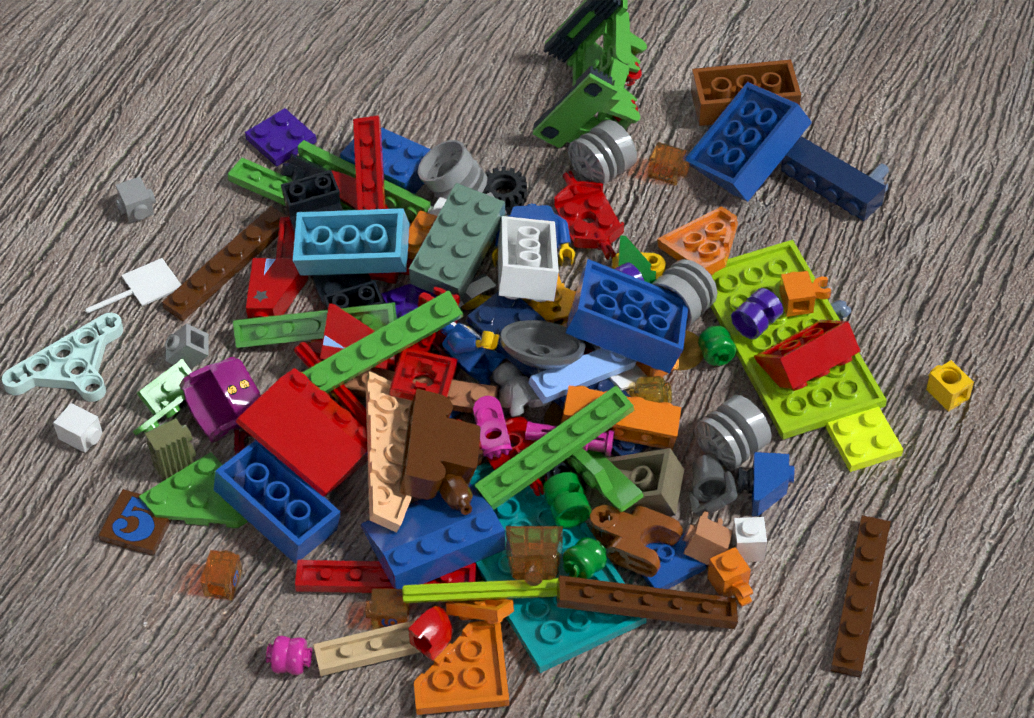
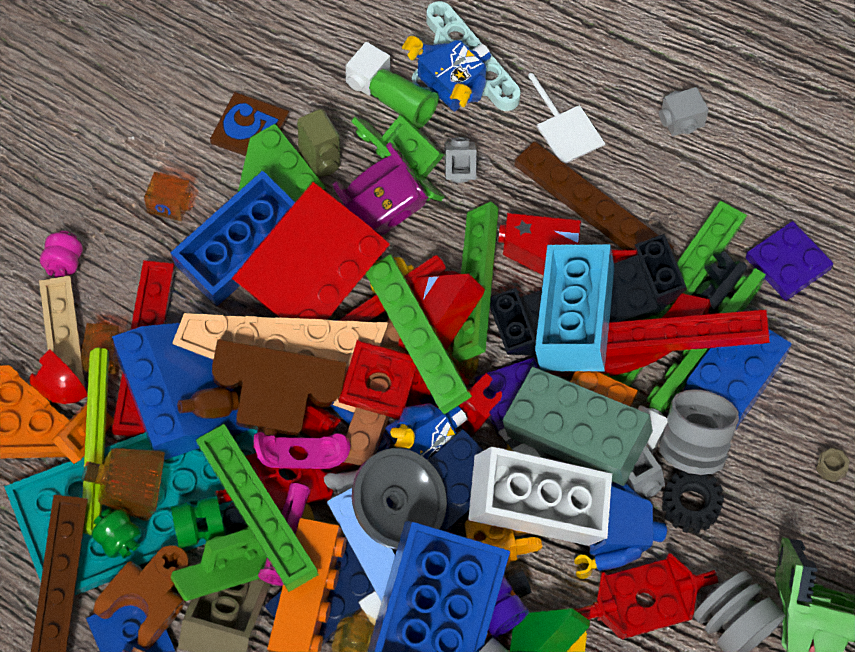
camera: 90 degrees right, 10 degrees up
(95, 351) = (451, 70): none -> blue torso
(114, 394) = (404, 97): none -> bright green plant
(464, 110) = (832, 464): none -> dark tan tile

